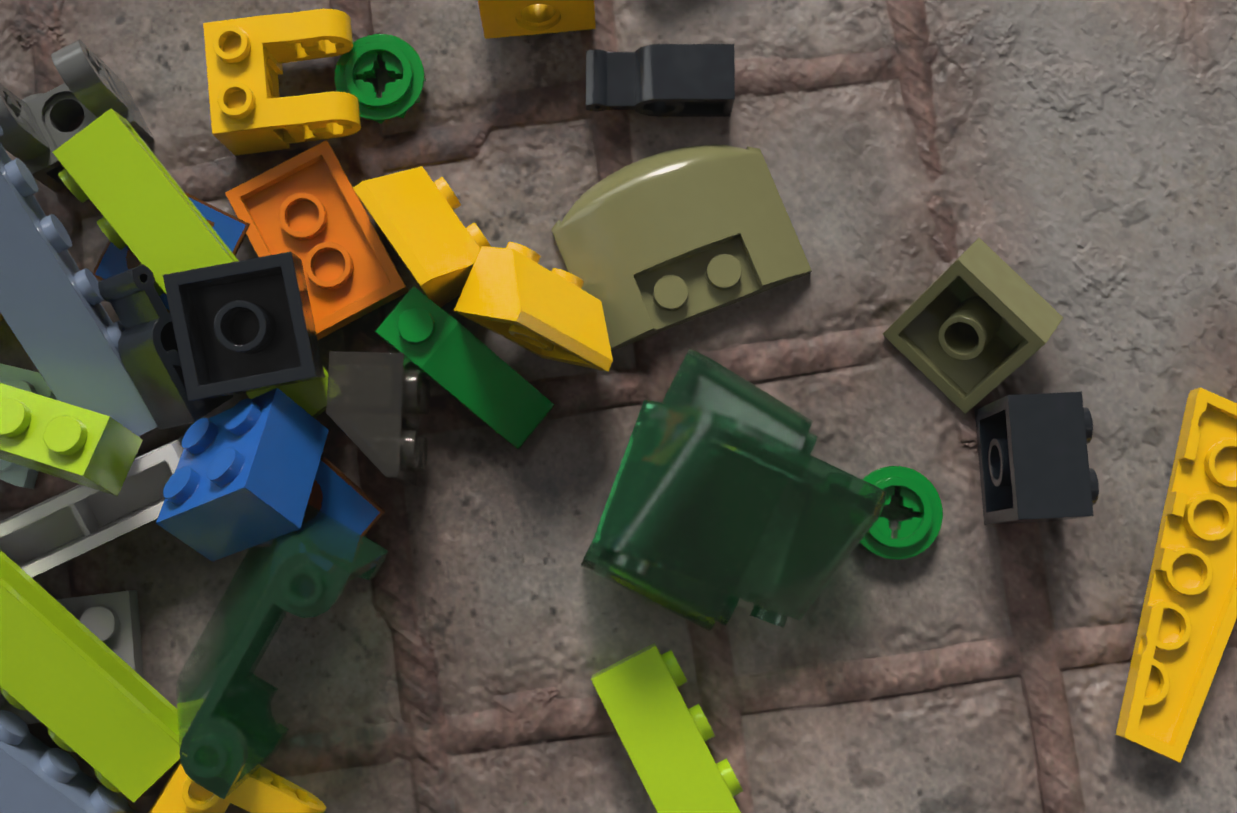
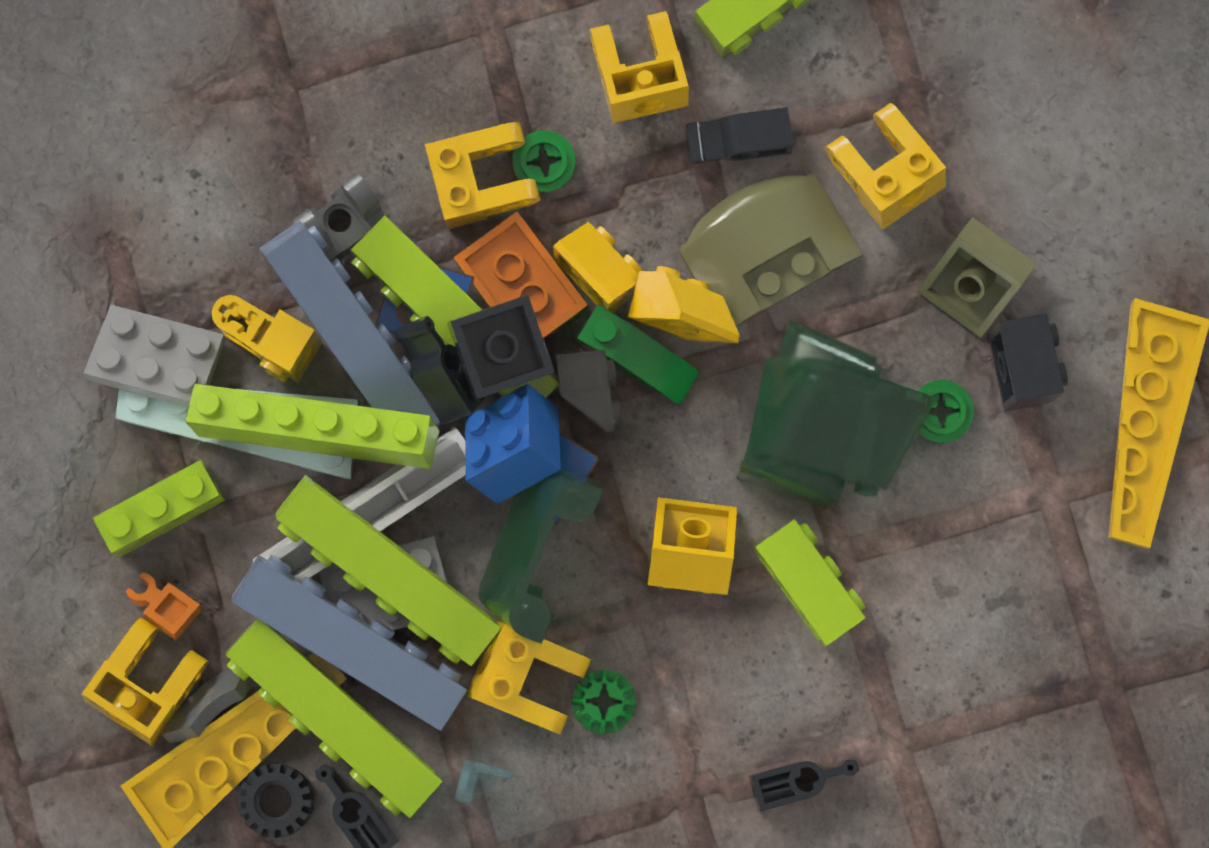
camera: 10 degrees left, 0 degrees up
(500, 661) = (692, 546): none -> yellow slope
(880, 174) = (900, 182): none -> yellow brick

